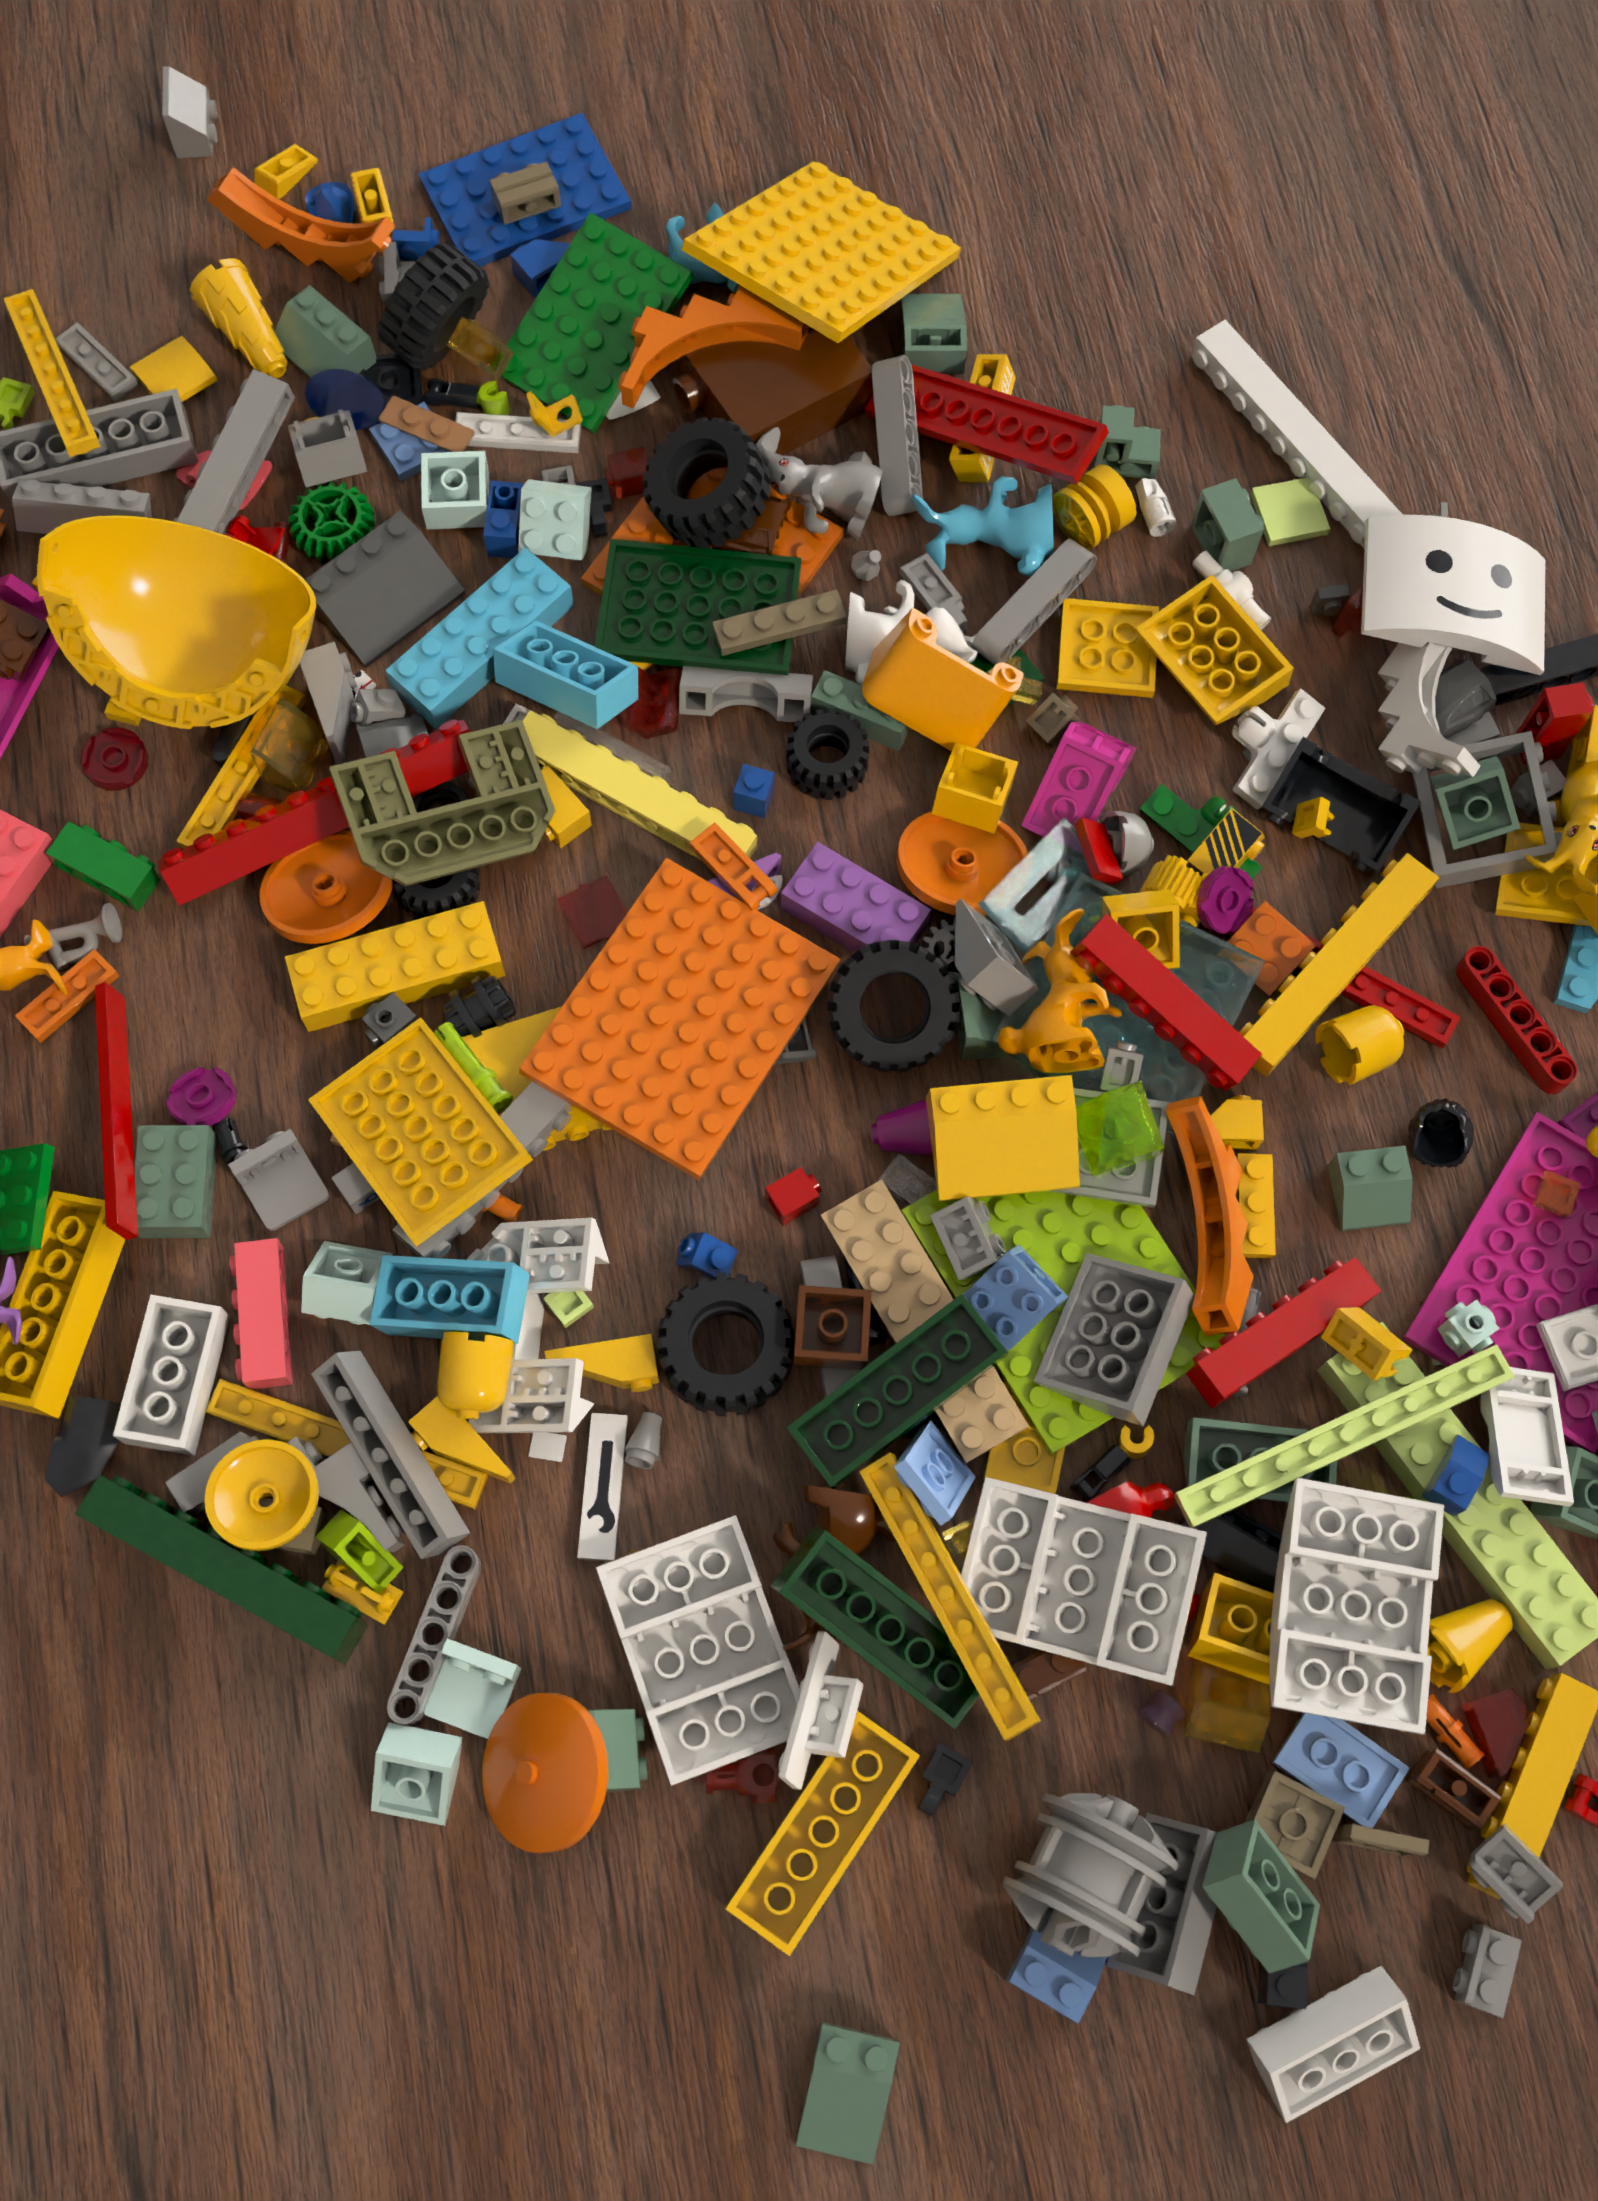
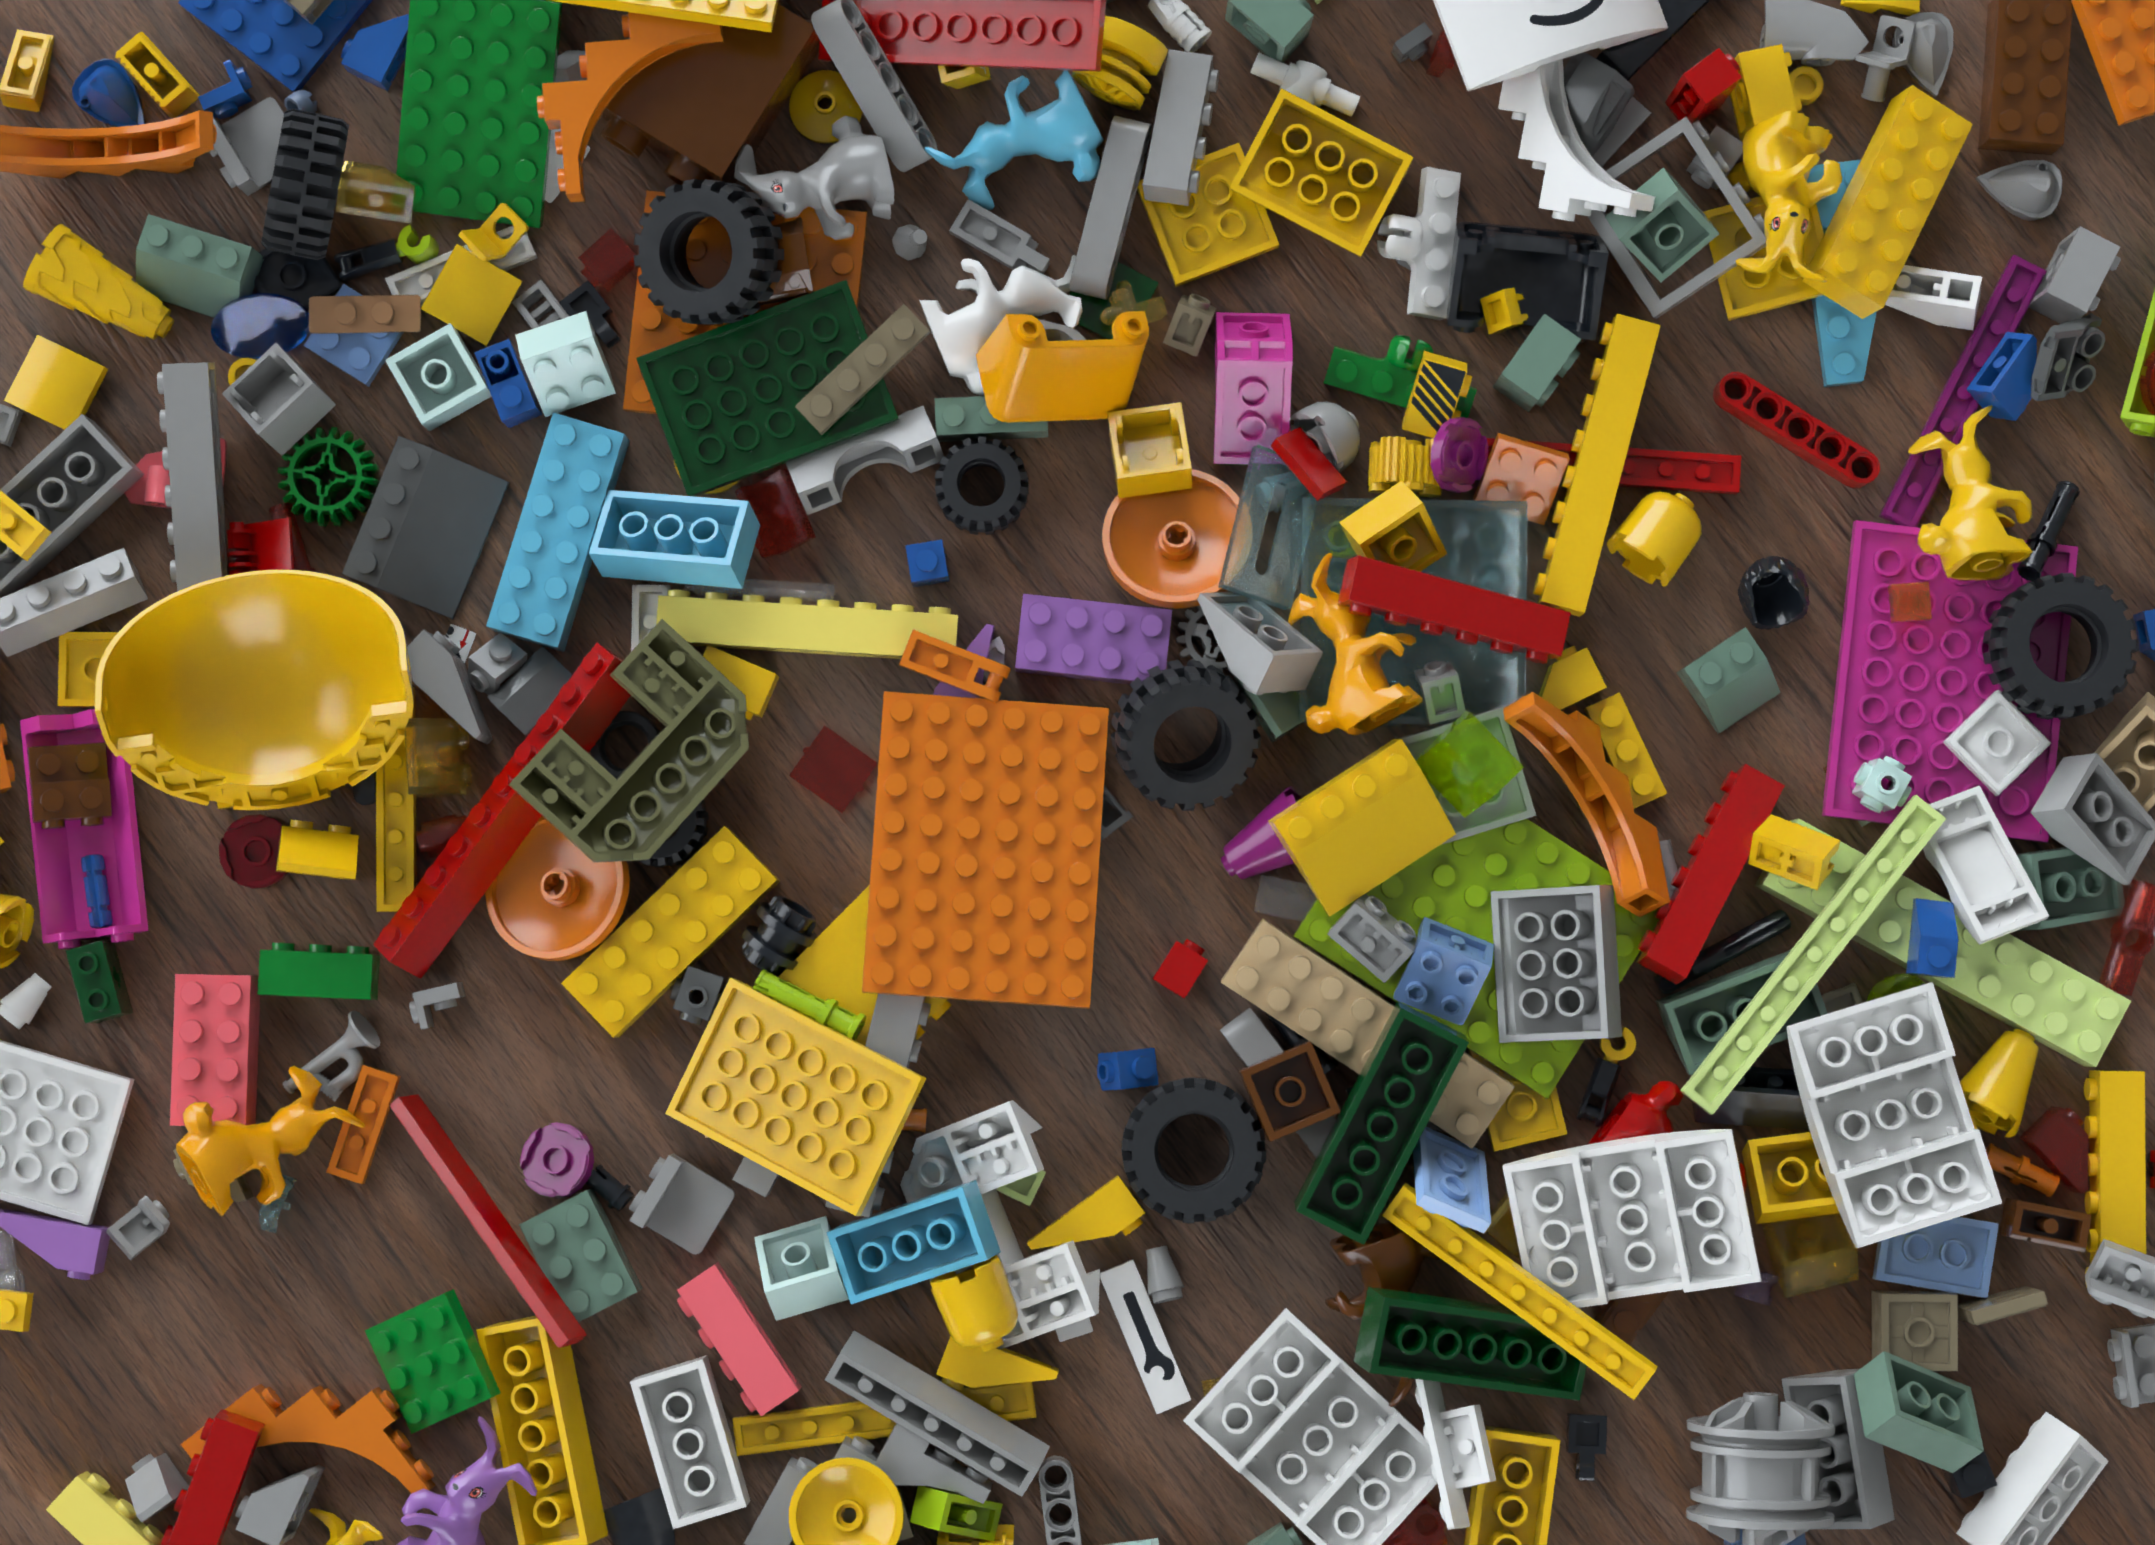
camera: 25 degrees left, 15 degrees up
(154, 772) = (317, 851): none -> yellow slope
(183, 926) = (442, 998): none -> light grey bracket
(514, 447) = (471, 294): none -> yellow tile
(837, 446) = (811, 119): none -> yellow dish
(1117, 572) = (1179, 128): none -> light grey brick
(1265, 1409) = (1730, 948): none -> black axle
(1322, 866) = (1542, 355): none -> sand green brick

